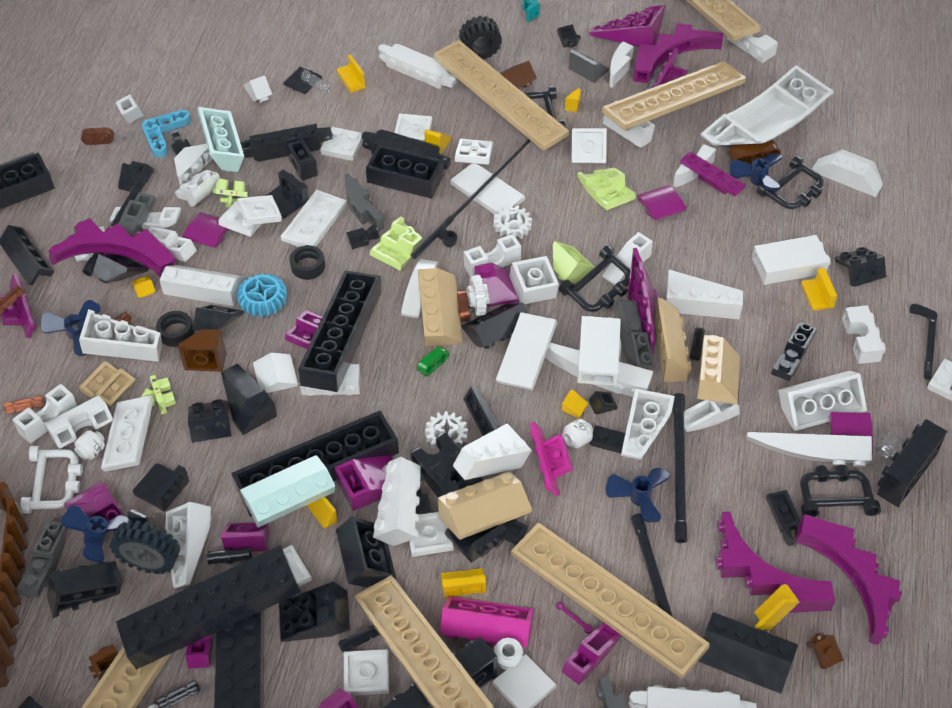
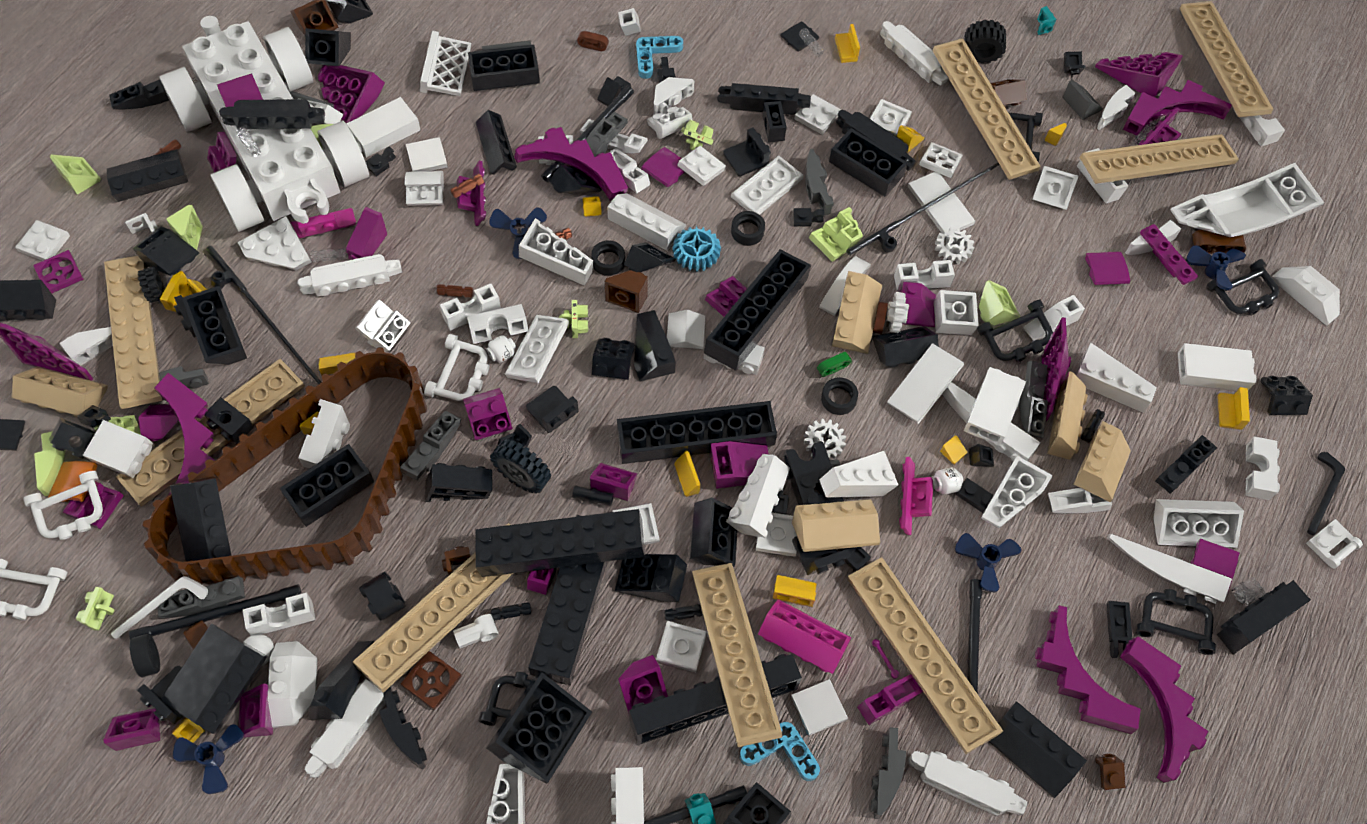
camera: 15 degrees right, 10 degrees up
(94, 528) = (469, 420): dark blue piece -> none
(107, 383) = (532, 293): tan slope -> none
(190, 527) = (564, 458): white wedge -> none
(221, 138) = (705, 77): light aqua slope -> none
(258, 89) = (755, 35): white slope -> none
(259, 210) = (719, 162): white tile -> none
(288, 490) = (662, 453): light aqua slope -> none
(447, 376) = (842, 383): none -> black tyre
(480, 411) = (863, 430): black plate -> none
(508, 653) = (813, 675): white head -> none
(607, 187) = (1059, 236): yellowish green slope -> none
(680, 491) = (1015, 602): black piece -> none
(775, 608) = (1078, 716): yellow panel -> none

